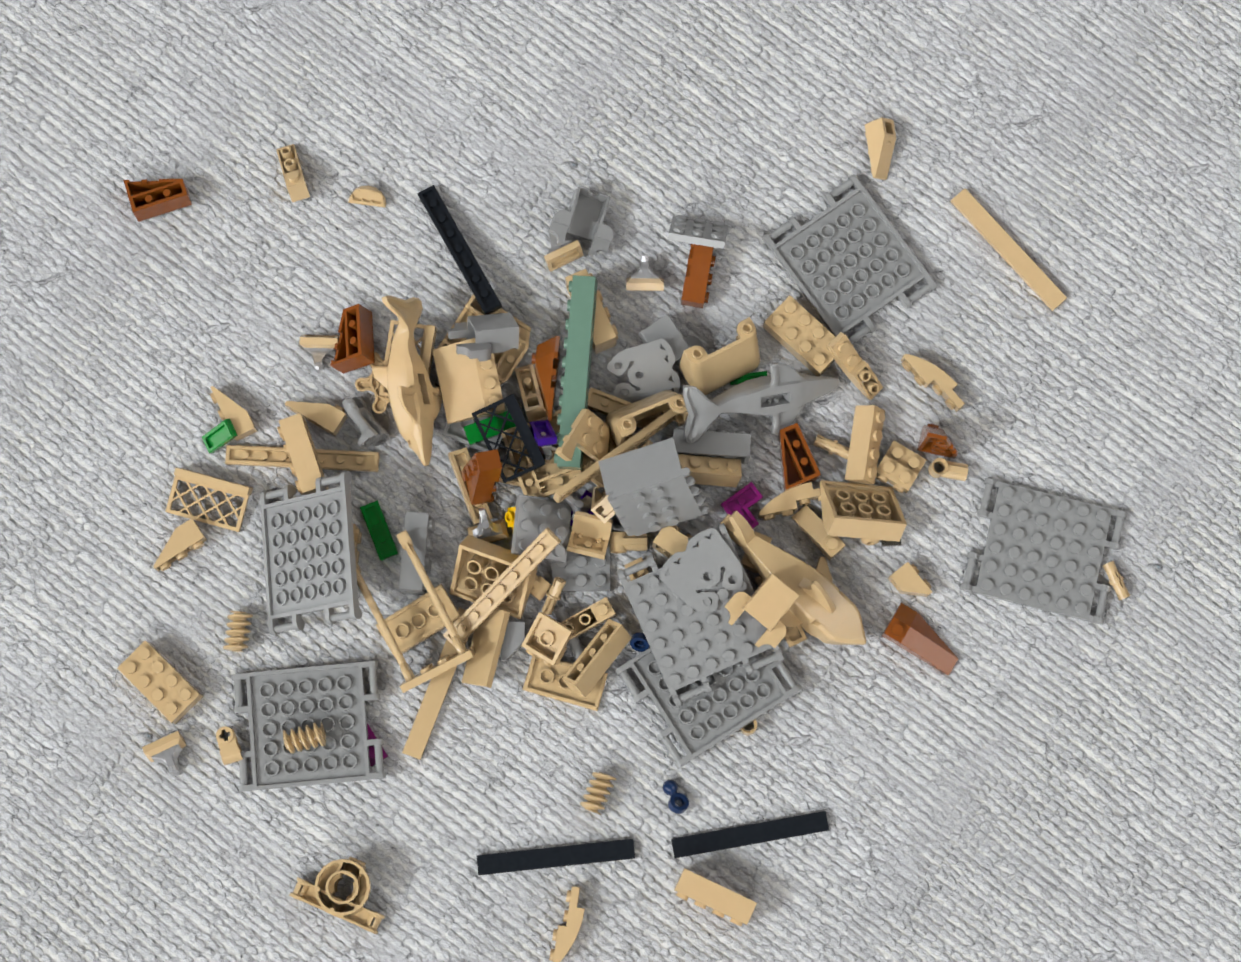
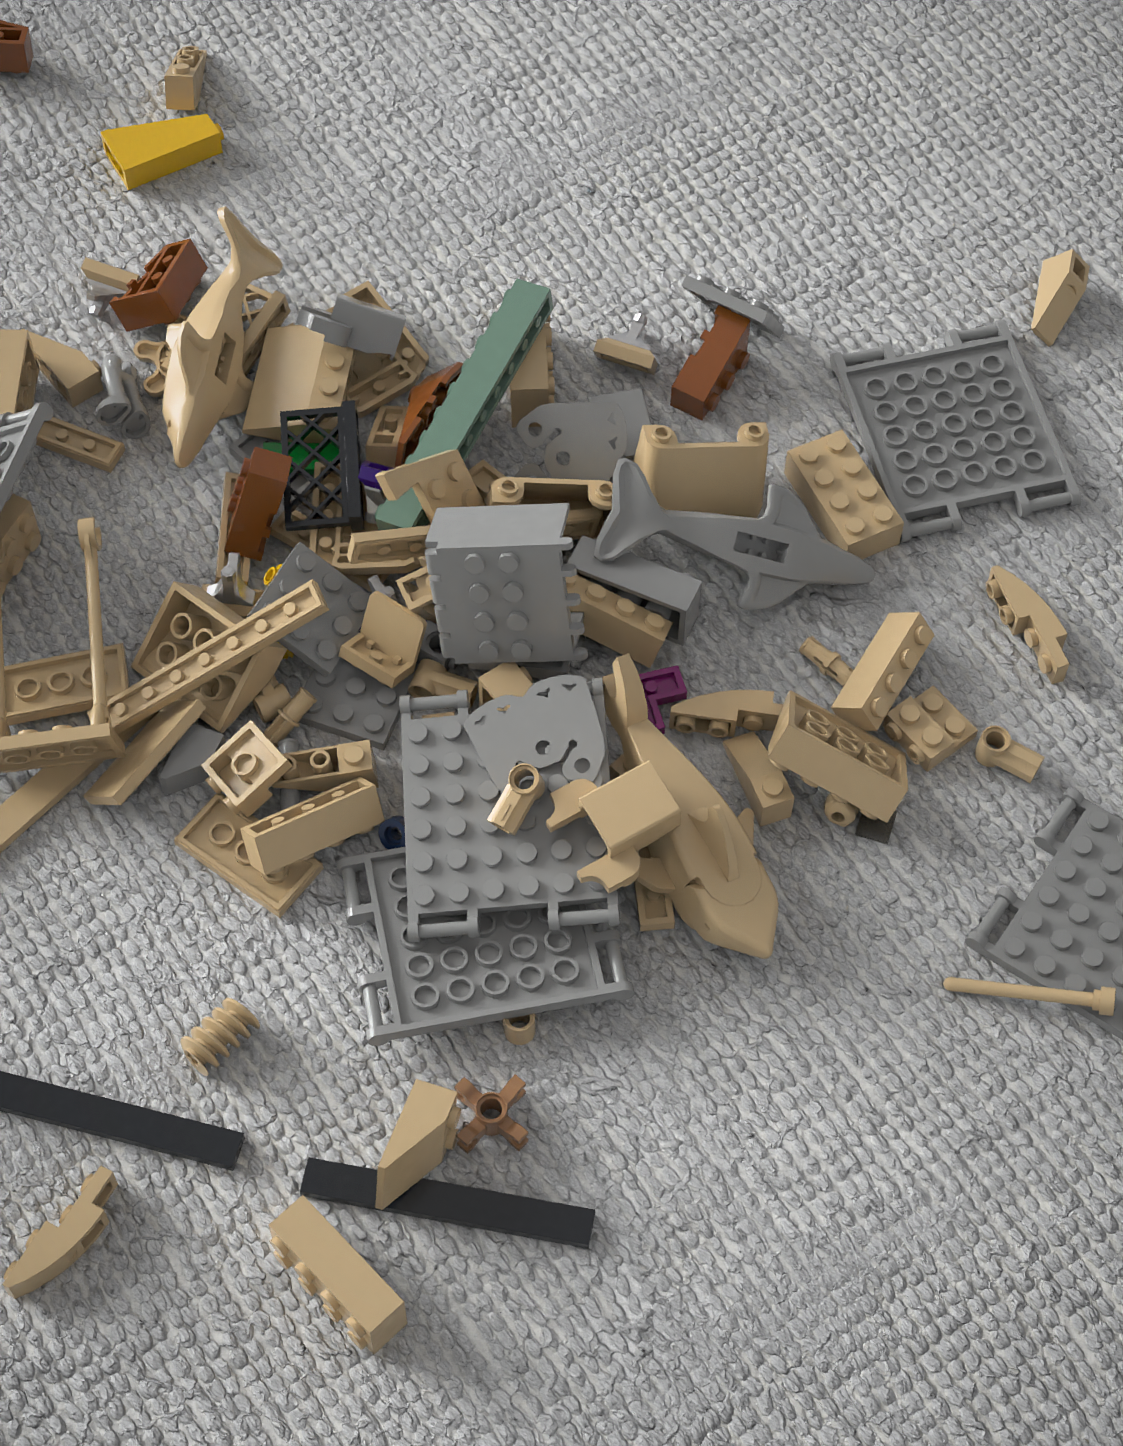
camera: 20 degrees right, 20 degrees down
(302, 234) = (161, 147): none -> yellow slope
(368, 196) = (275, 133): tan plate -> none
(379, 530) = (66, 555): green tile -> none
(419, 529) = (122, 565): light grey brick -> none
(459, 250) = (371, 229): black tile -> none
(562, 255) = (517, 268): tan piece -> none
(584, 220) = (569, 246): light grey piece -> none
(670, 788) = (345, 1101): dark blue plate -> none
(706, 615) = (516, 802): none -> tan piece
(727, 804) = (418, 1140): none -> tan slope
(751, 789) = (503, 1124): none -> medium nougat pin
(796, 458) = (764, 650): dark orange wedge -> none
(854, 367) = (905, 554): tan slope -> none
(909, 582) = (881, 897): tan slope -> none
(915, 635) = (862, 988): dark orange wedge -> none
(935, 441) = (1002, 696): dark orange wedge -> none
(1040, 602) = (1099, 1000): none -> tan piece

